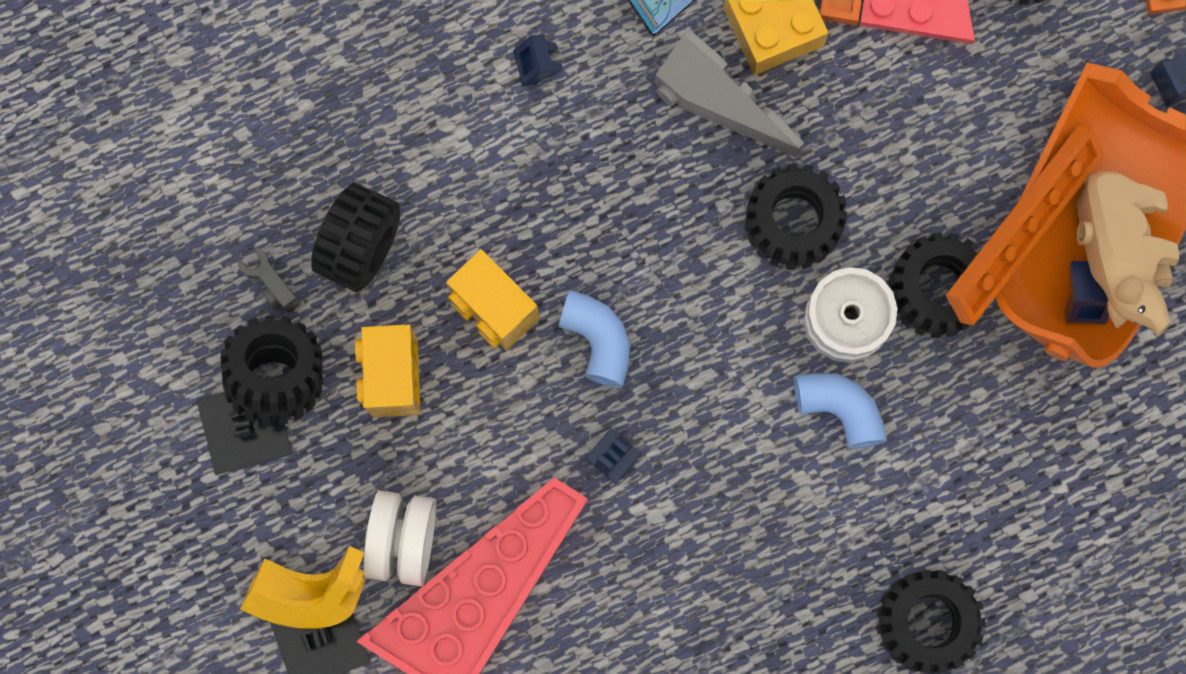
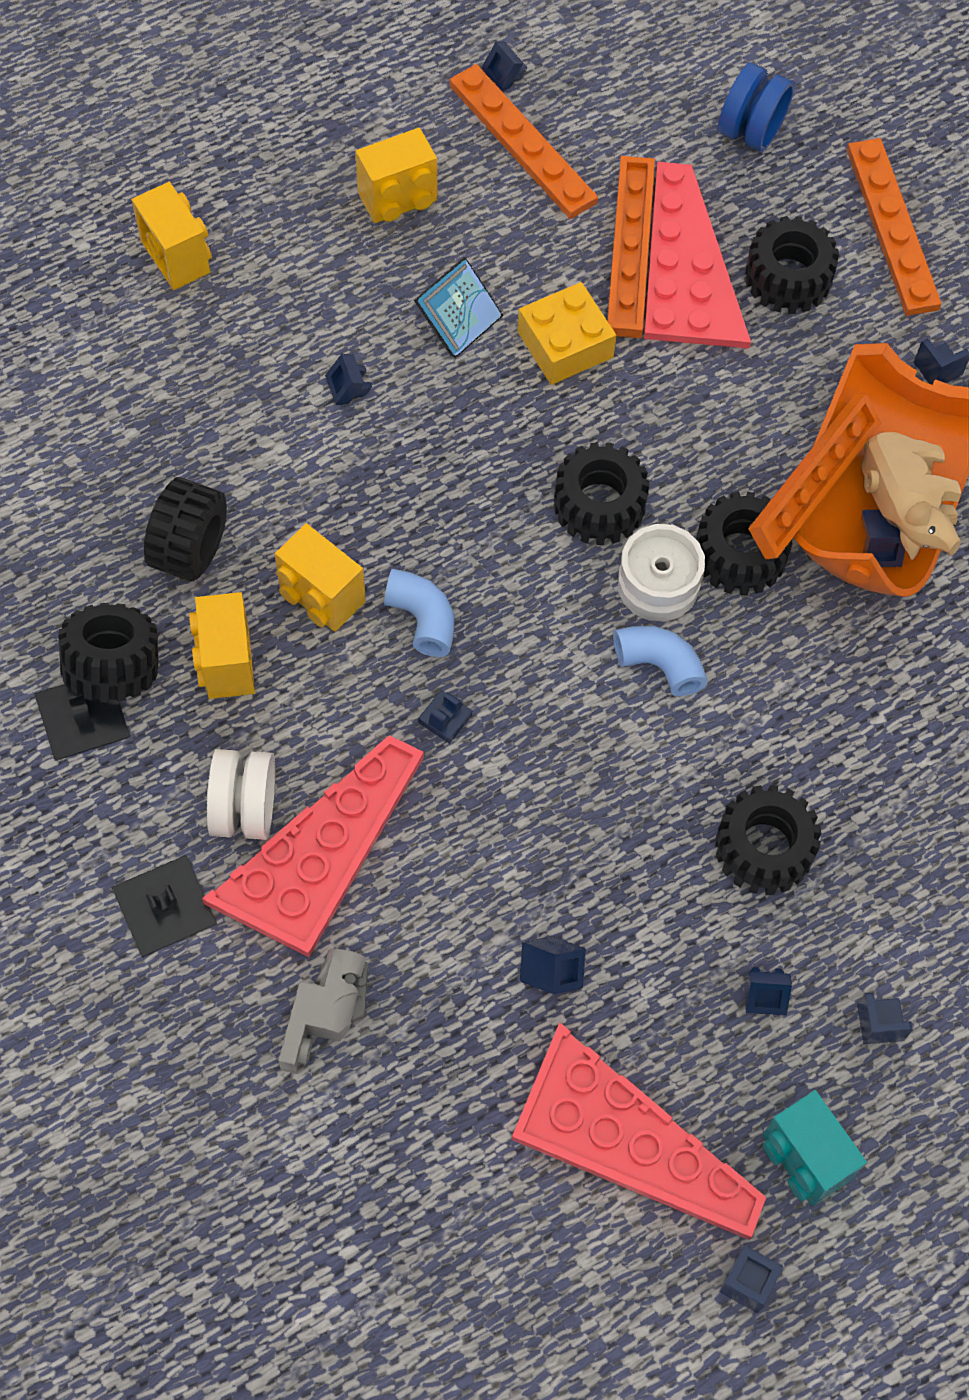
camera: 10 degrees left, 15 degrees down
(276, 291) = (110, 586): dark grey plate -> none
(306, 599) = (150, 862): yellow arch -> none
(699, 84) = (509, 392): light grey wedge -> none

